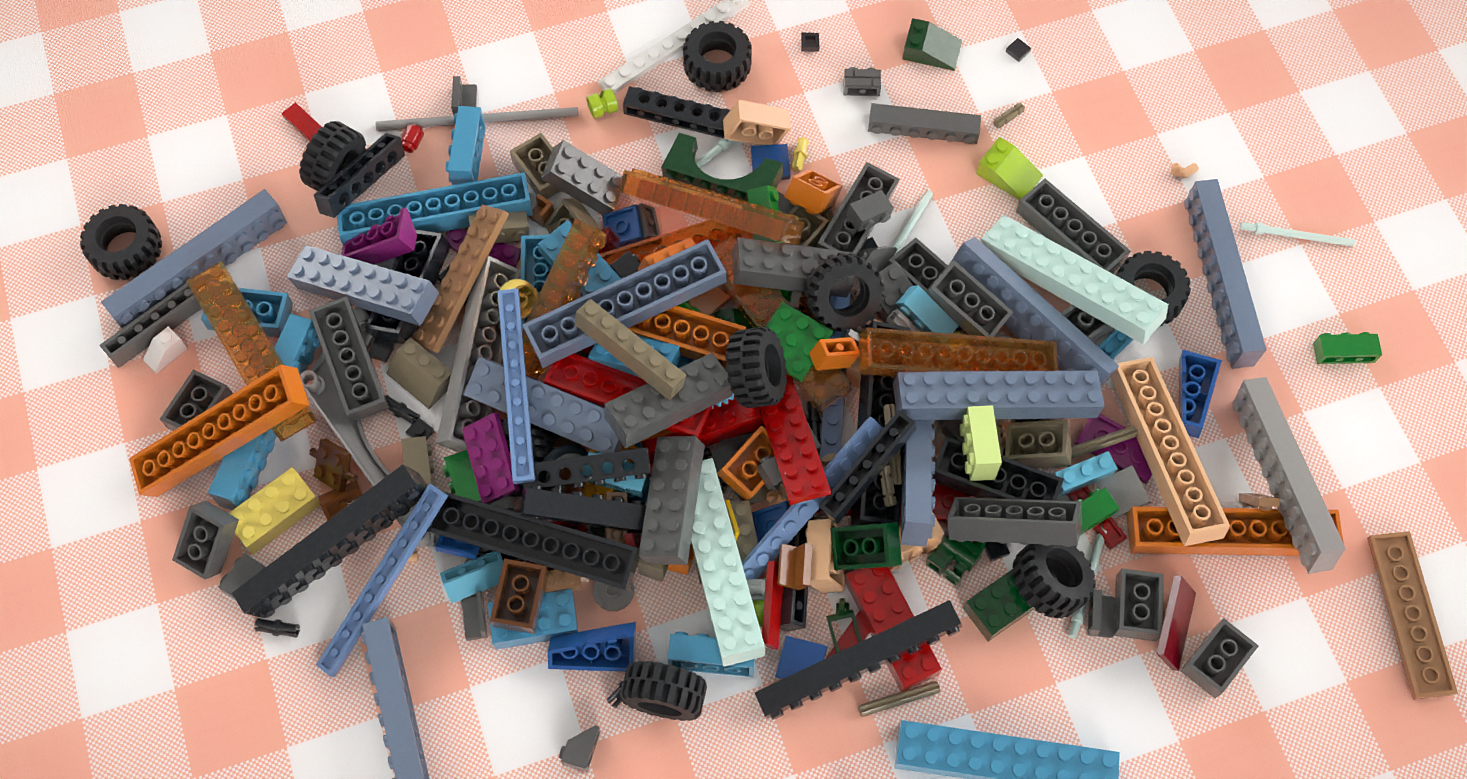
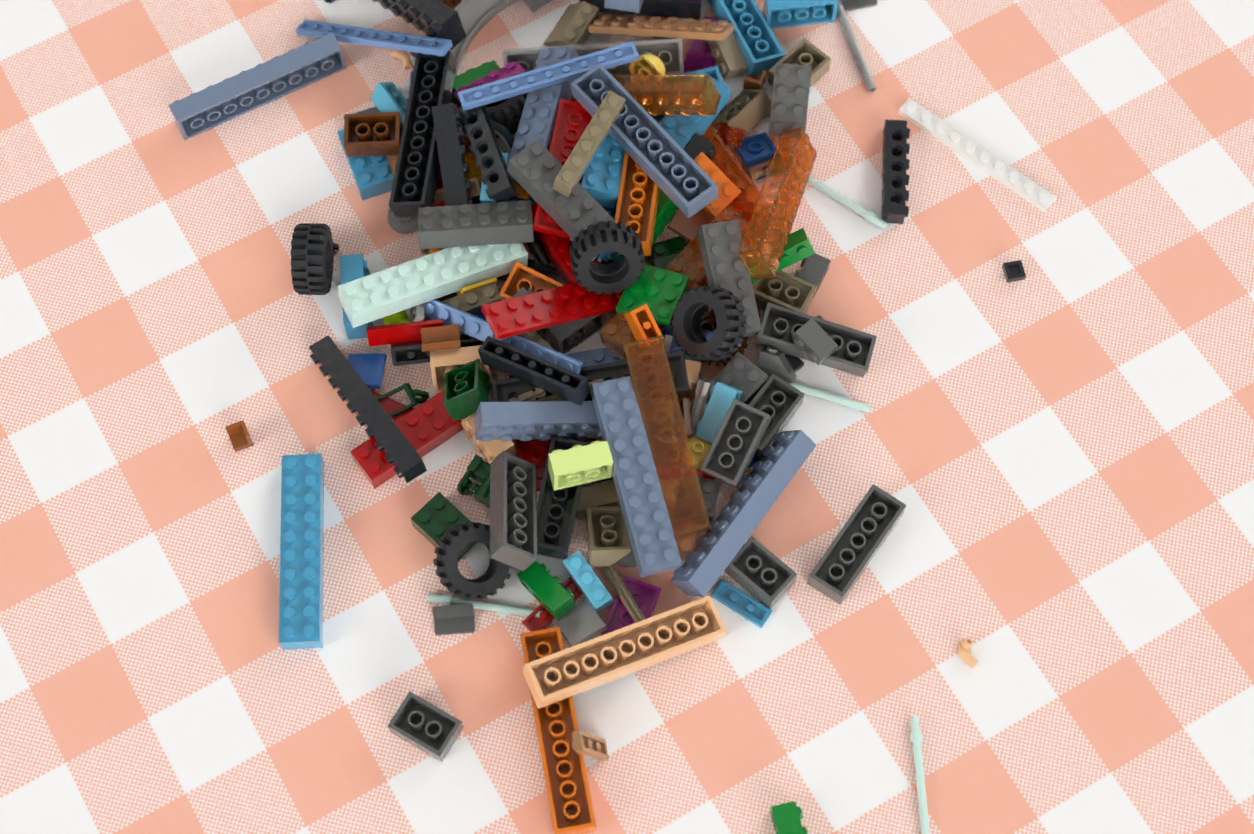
camera: 80 degrees right, 0 degrees up
(401, 410) = (535, 23): black pin -> none
(416, 455) = (482, 45): dark tan brick -> none
(420, 429) = (520, 40): black plate -> none
(580, 749) = (262, 219): dark grey slope -> none
(594, 649) = (346, 209): blue wedge -> none
(602, 103) = (883, 104): lime wheel -> none
(682, 167) = (832, 183): dark green arch -> none
(717, 37) = (966, 169): black tyre -> none
(756, 123) = (892, 232): light nougat brick -> none
(776, 152) = (864, 261): blue tile -> none
(799, 154) = (878, 284): light yellow axle -> none
(813, 192) = (830, 294): orange brick -> none
(814, 420) = (594, 343): black pin -> none
(862, 82) = (979, 325): dark grey brick -> none
(899, 698) = (346, 457): dark tan axle -> none
(924, 123) = (947, 390): dark grey brick -> none
(931, 45) = (1045, 383): slope -> none
(1008, 169) = (916, 477): lime slope -> none
(1009, 115) = (984, 471): dark tan axle -> none
(1018, 49) = (1069, 470): black tile -> none
(1076, 279) = (791, 542): light aqua brick -> none
(1138, 604) = (465, 647): dark grey brick -> none
(1163, 271) = (815, 602): black tyre -> none
(1176, 623) = (453, 683): dark red tile -> none
(1196, 386) = (701, 682): blue wedge -> none
(1224, 274) = (845, 696): sand blue brick -> none
(1288, 476) = (618, 763): light grey brick -> none

